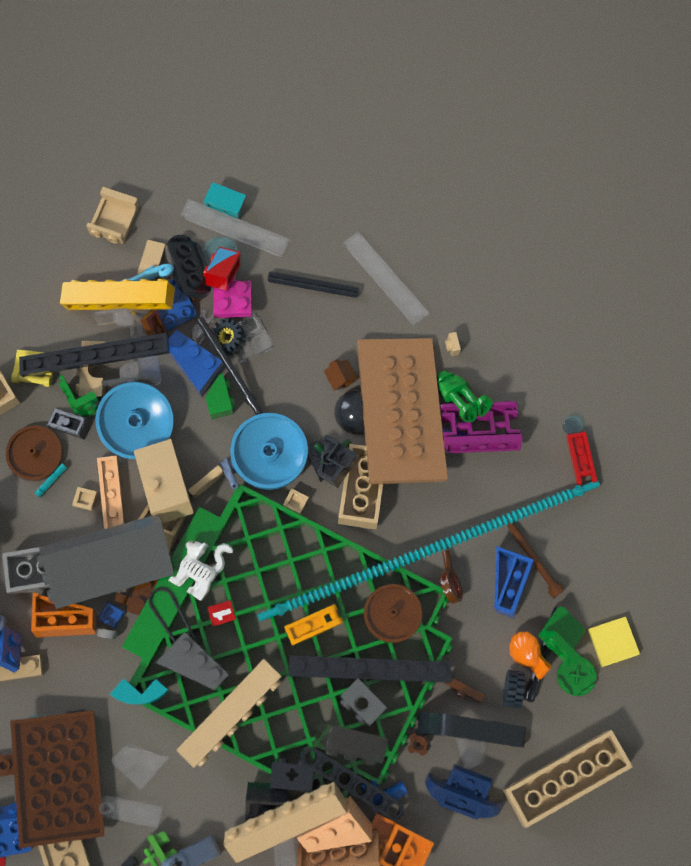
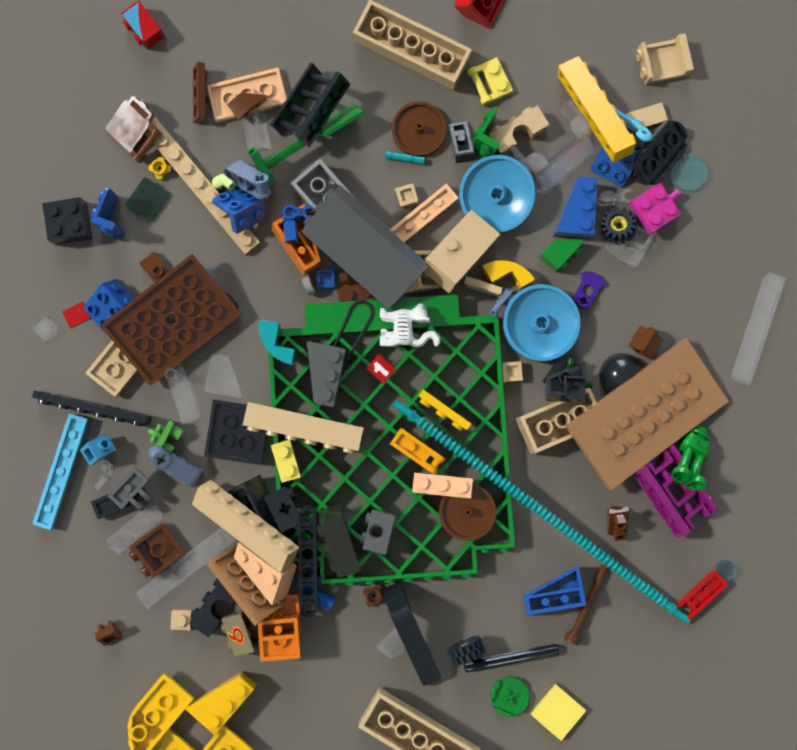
camera: 60 degrees right, 10 degrees up
(35, 610) = (289, 215): none -> blue bar
(94, 355) = (532, 124): black plate -> none
(153, 324) = (586, 160): reddish brown plate -> none
(197, 788) = (230, 438): none -> black plate
(200, 460) = (498, 269): none -> yellow brick
(222, 268) = (677, 182): red brick -> none
(224, 200) = (739, 145): teal panel -> none
(235, 228) = (720, 170): clear plate -> none
(250, 399) = (577, 277): black bar -> none
(250, 749) = (286, 461): none -> light yellow plate
(264, 385) = (592, 280): none -> dark purple piece
(292, 580) = (443, 411): none -> yellow plate
(313, 284) = (712, 269): black axle -> none
(357, 620) = (443, 485): none -> light nougat plate
(370, 669) = (409, 520): black plate -> none
(450, 581) = (524, 543): reddish brown piece -> none
(452, 344) = (734, 422): tan plate -> none
(464, 793) = (356, 657): dark blue plate -> none
(465, 691) = (439, 607): reddish brown plate -> none
(479, 490) = (618, 522): none -> reddish brown hips
(526, 652) = (504, 643): orange animal -> none
(562, 635) = (536, 665): green bracket -> none

